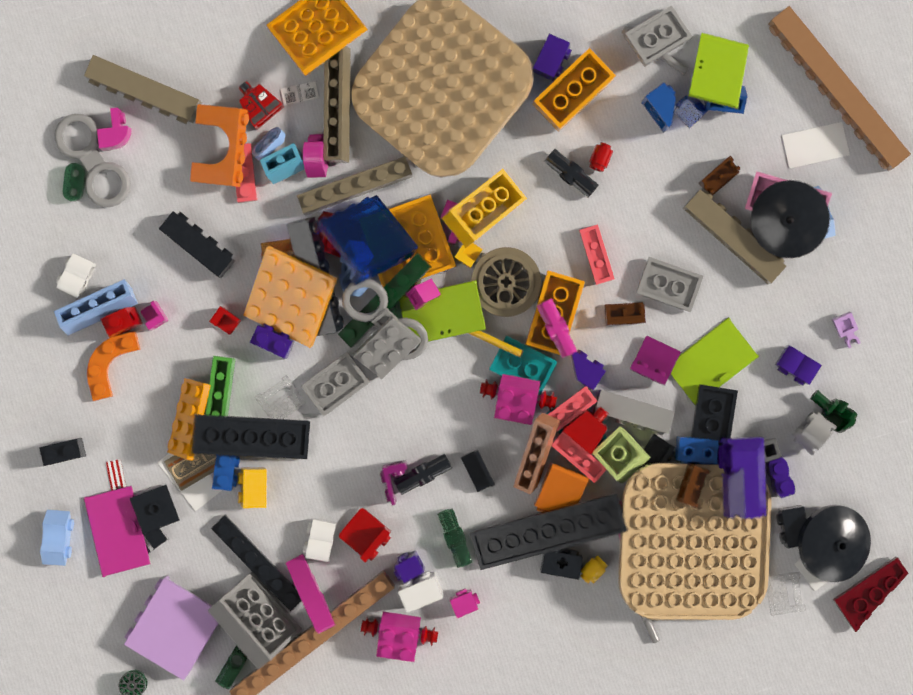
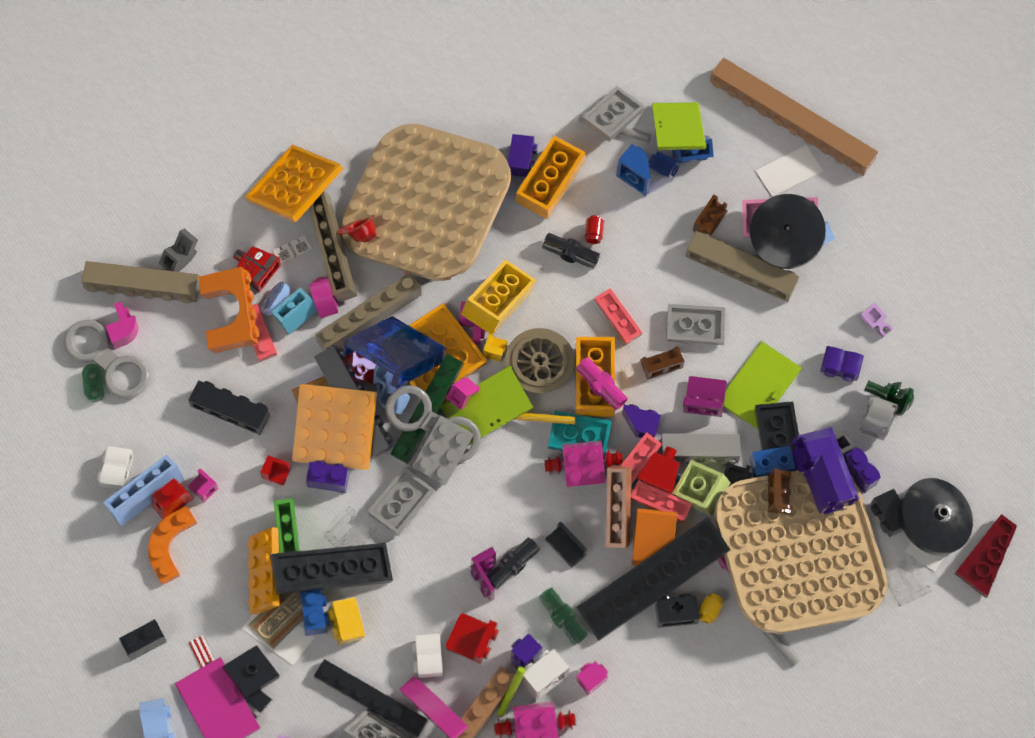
camera: 20 degrees left, 20 degrees down
(187, 70) = (181, 253): none -> dark grey brick
(367, 97) = (360, 230): none -> red piece
(384, 600) = (511, 692): none -> lime bar

